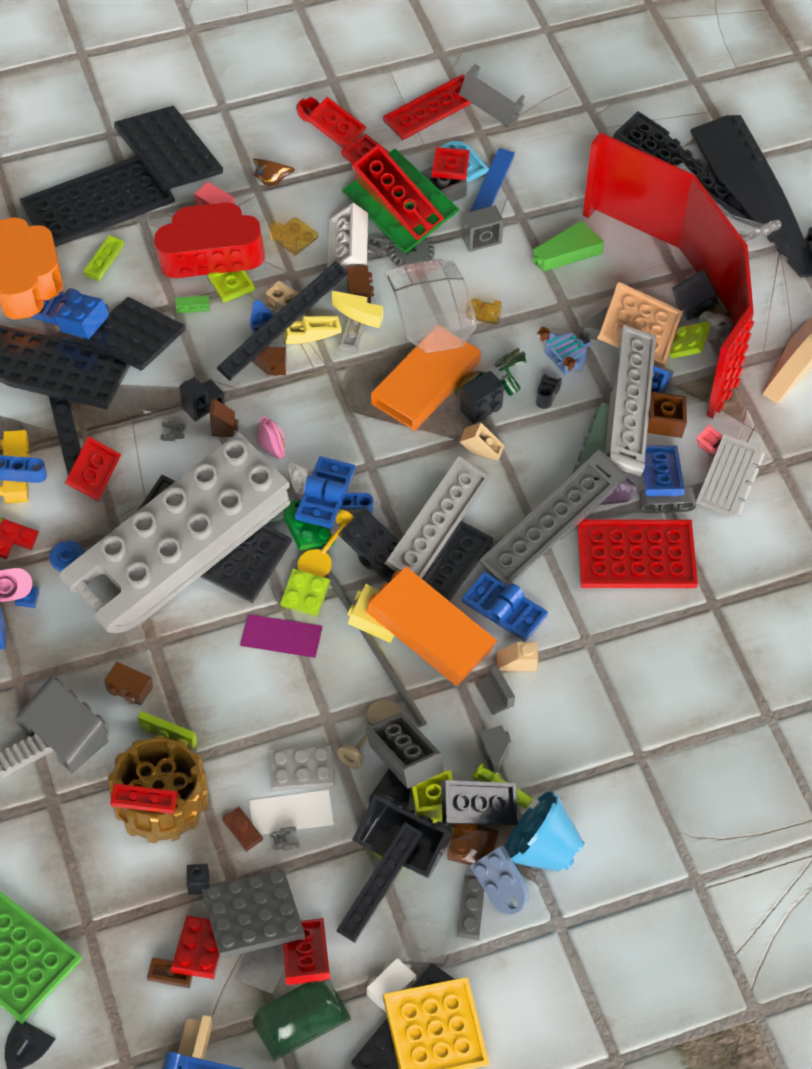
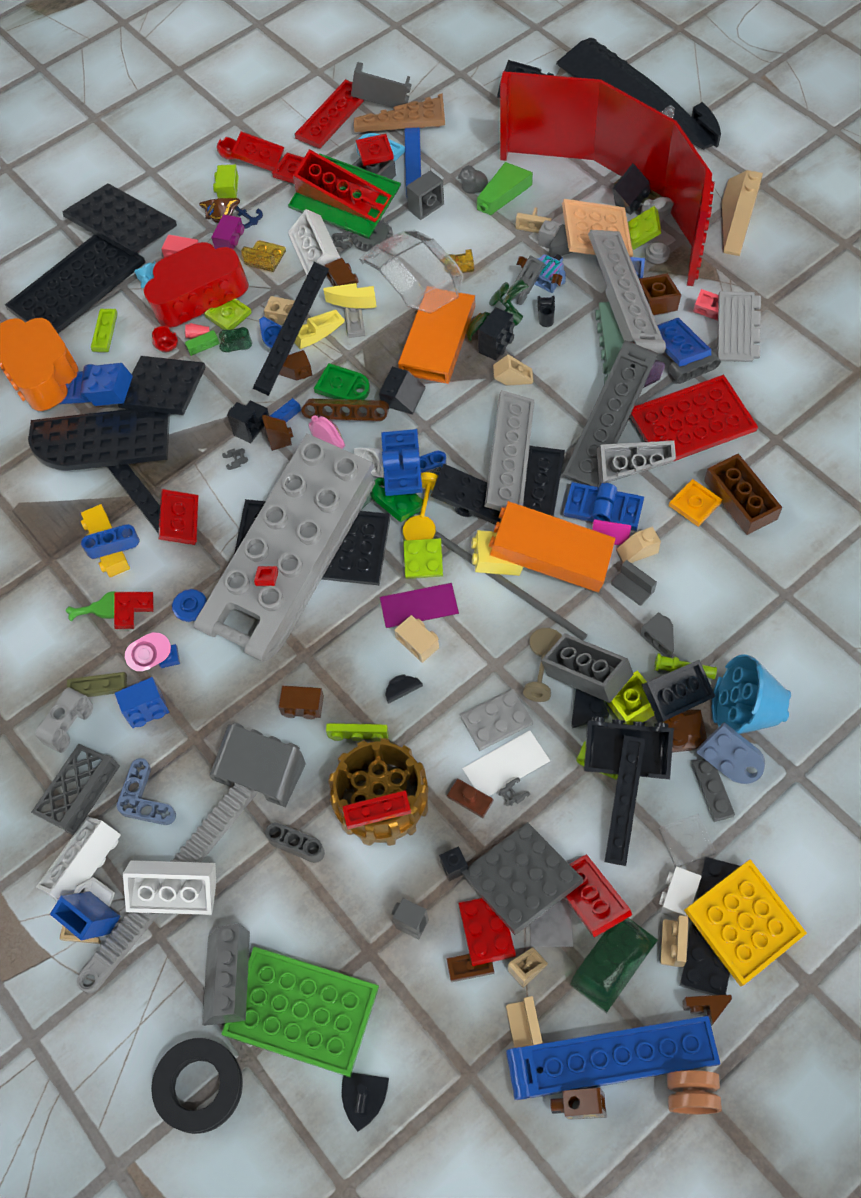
camera: 15 degrees left, 5 degrees up
(67, 814) = (288, 835): none -> dark grey beam
(135, 909) = (410, 918): none -> dark grey piece
(141, 552) = (266, 576): none -> red plate
(157, 288) = (164, 339): none -> red hair
(166, 213) = (145, 273): none -> medium azure hair
(189, 289) = (195, 330): none -> coral cone
(220, 992) = (526, 966): none -> tan slope
(226, 312) = (236, 339): none -> clear green piece
(227, 704) = (401, 686): none -> black plate
(242, 403) = (287, 411): none -> blue piece
(263, 666) = (417, 638): none -> tan brick
(268, 199) = (228, 232): none -> magenta brick
(291, 144) = (226, 181): none -> lime brick
(300, 194) = (253, 220): none -> dark blue piece
(307, 419) = (353, 405): none -> reddish brown beam
(308, 394) = (342, 384): none -> green plate
(362, 421) = (401, 390): none -> black slope
(364, 1023) = (674, 942): none -> tan bracket
(503, 635) = (617, 530): none -> dark pink slope
(507, 135) = (404, 116): none -> medium nougat wing
(540, 228) = (472, 180): none -> dark grey hair
(541, 352) = (529, 275): none -> dark grey hinge
(544, 568) = (628, 459): none -> light grey wedge
(581, 294) = (530, 222): none -> tan panel
(587, 310) = (547, 233): none -> light grey brick
(596, 635) = (695, 502): none -> light orange plate
(645, 644) = (743, 494): none -> reddish brown brick
(692, 370) = (657, 252): none -> light grey plate

